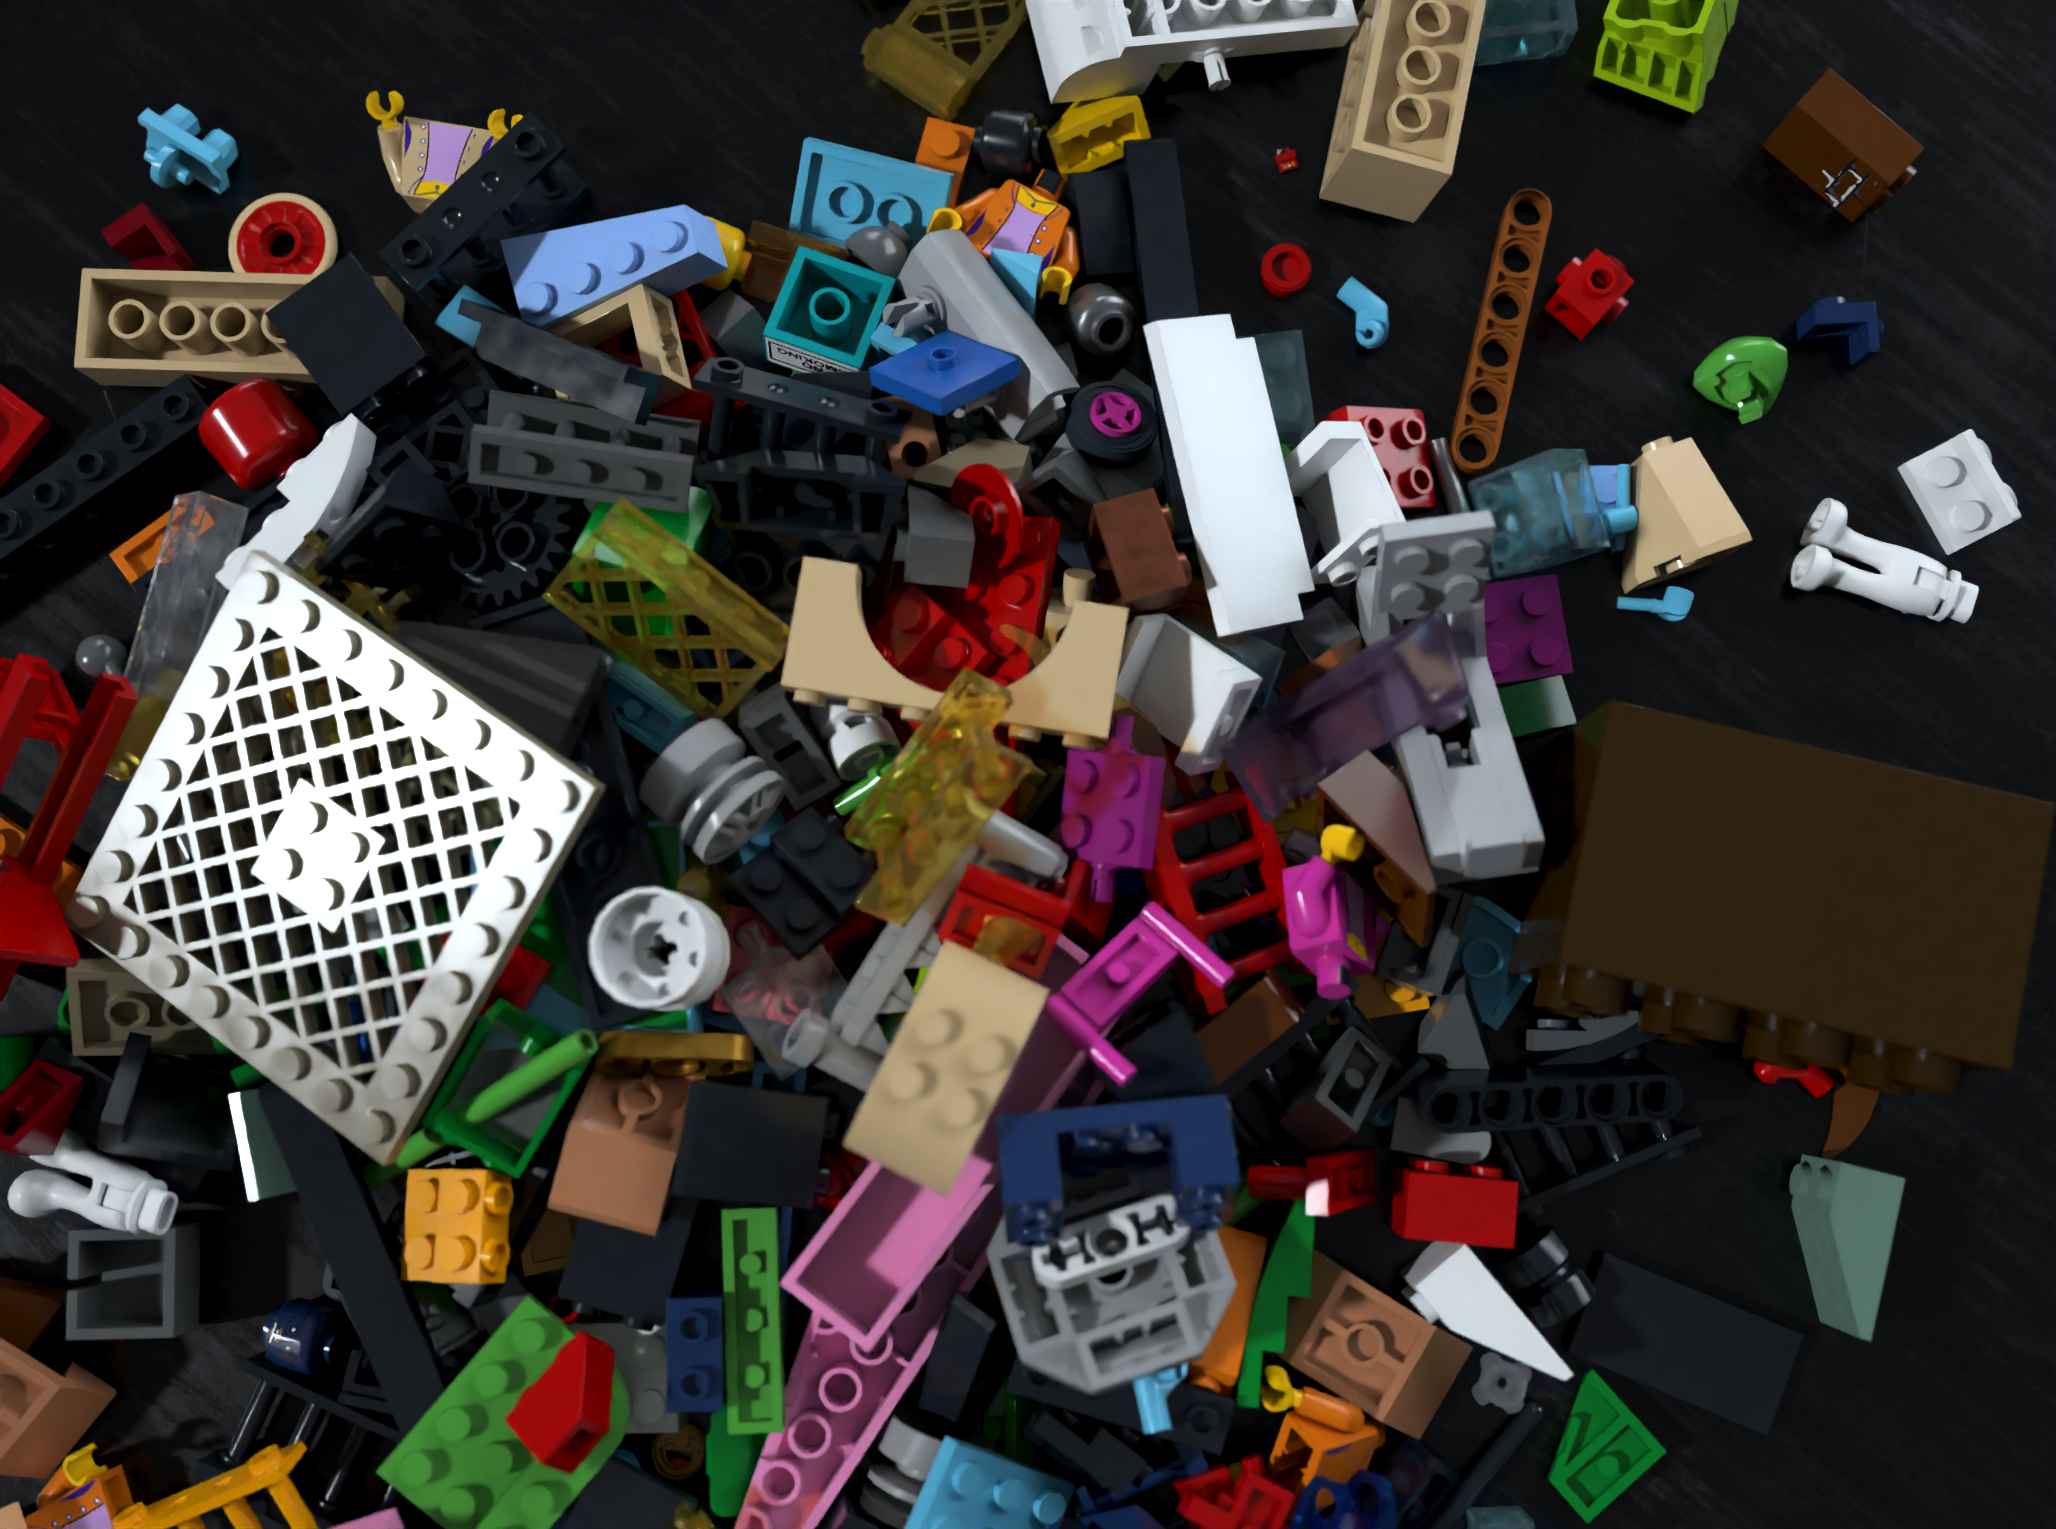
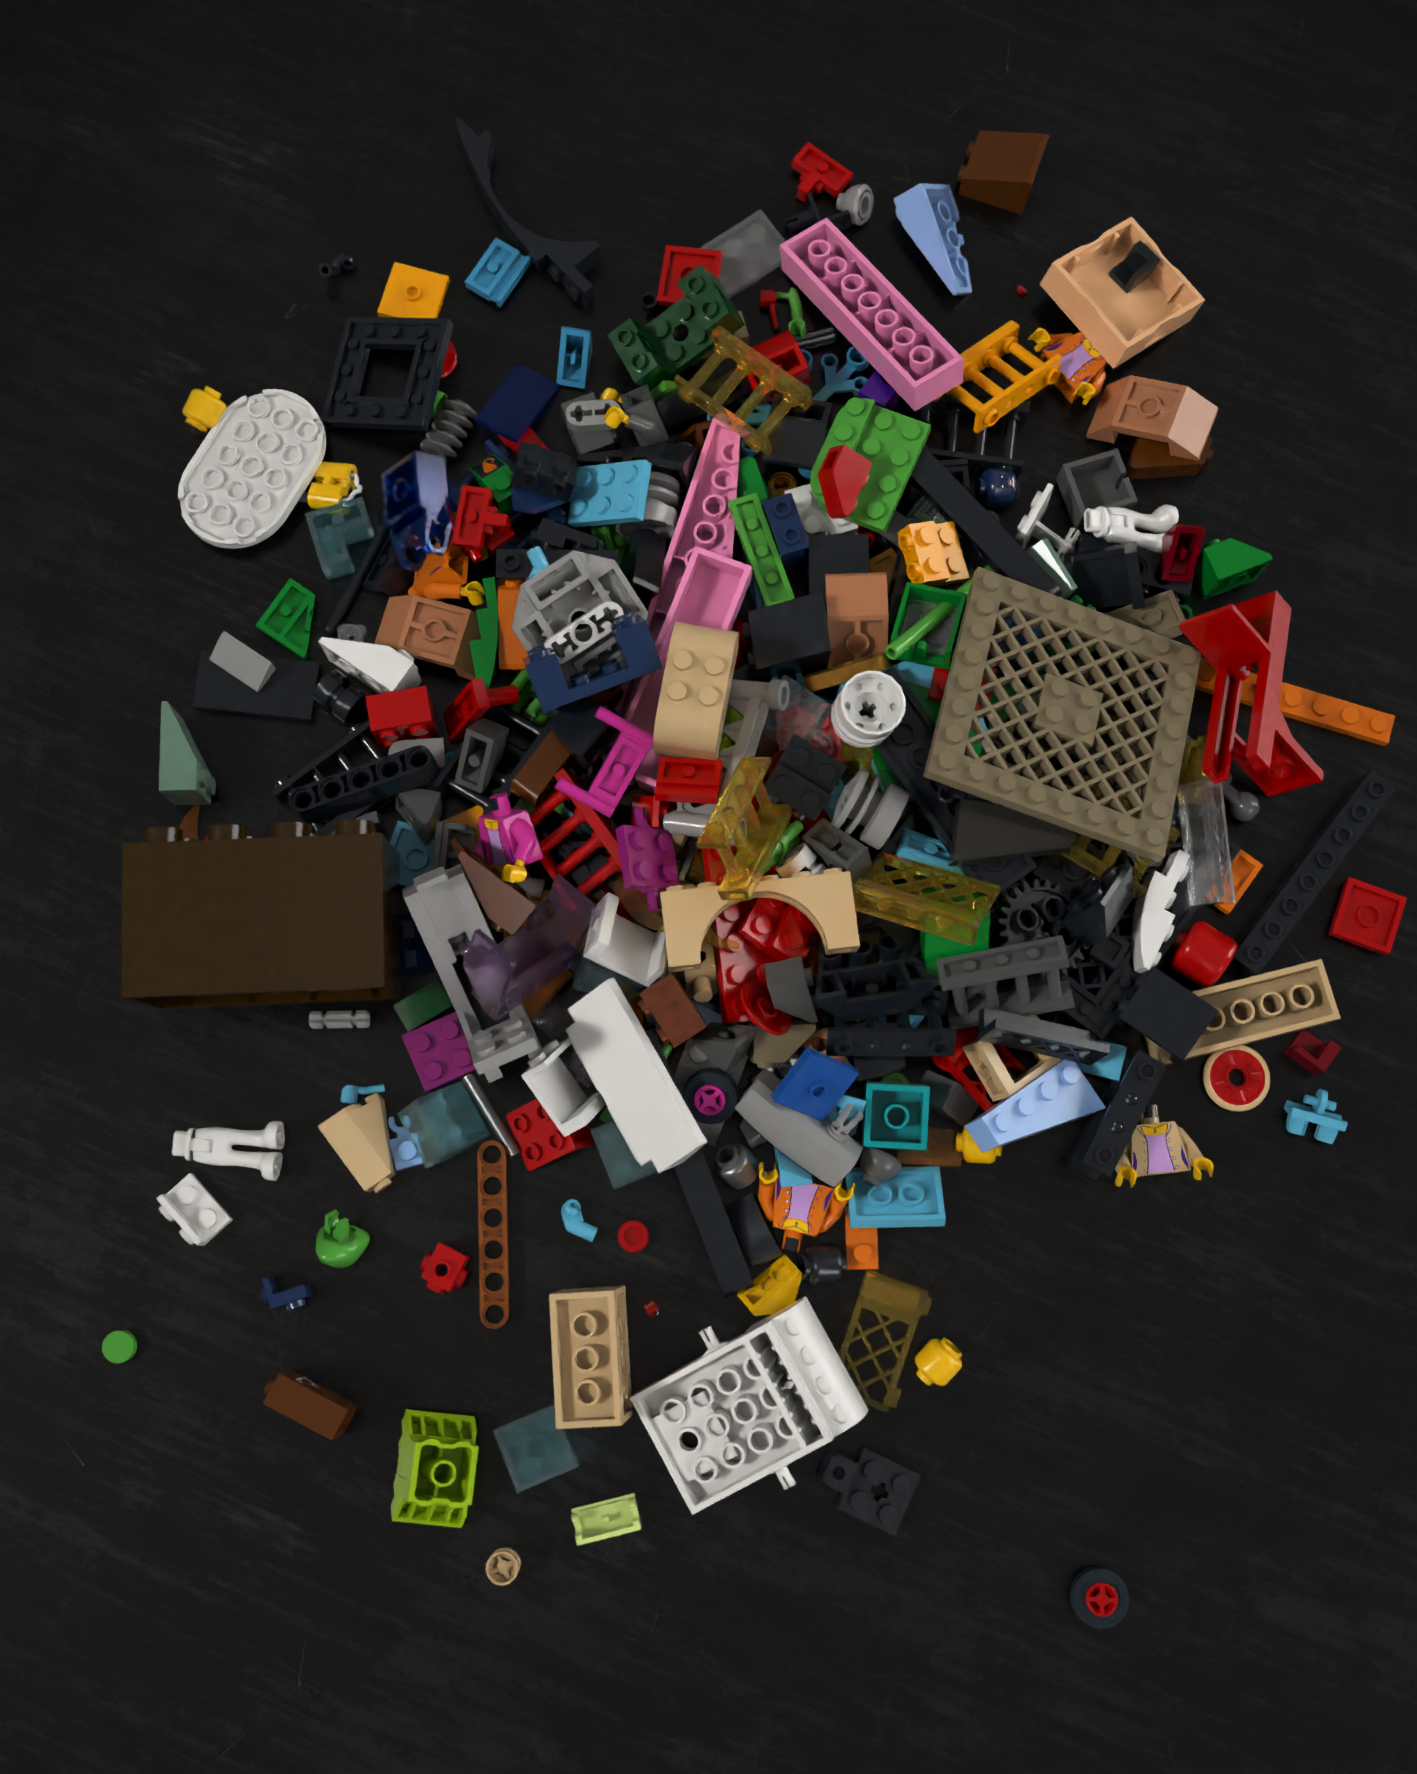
camera: 155 degrees right, 5 degrees down
(266, 1241) = (1031, 526): none -> white plate
(1004, 939) = (686, 766): clear yellow slope -> none
(1624, 517) = (394, 1131): medium azure hand -> none
(1704, 1389) = (241, 662): none -> light grey slope

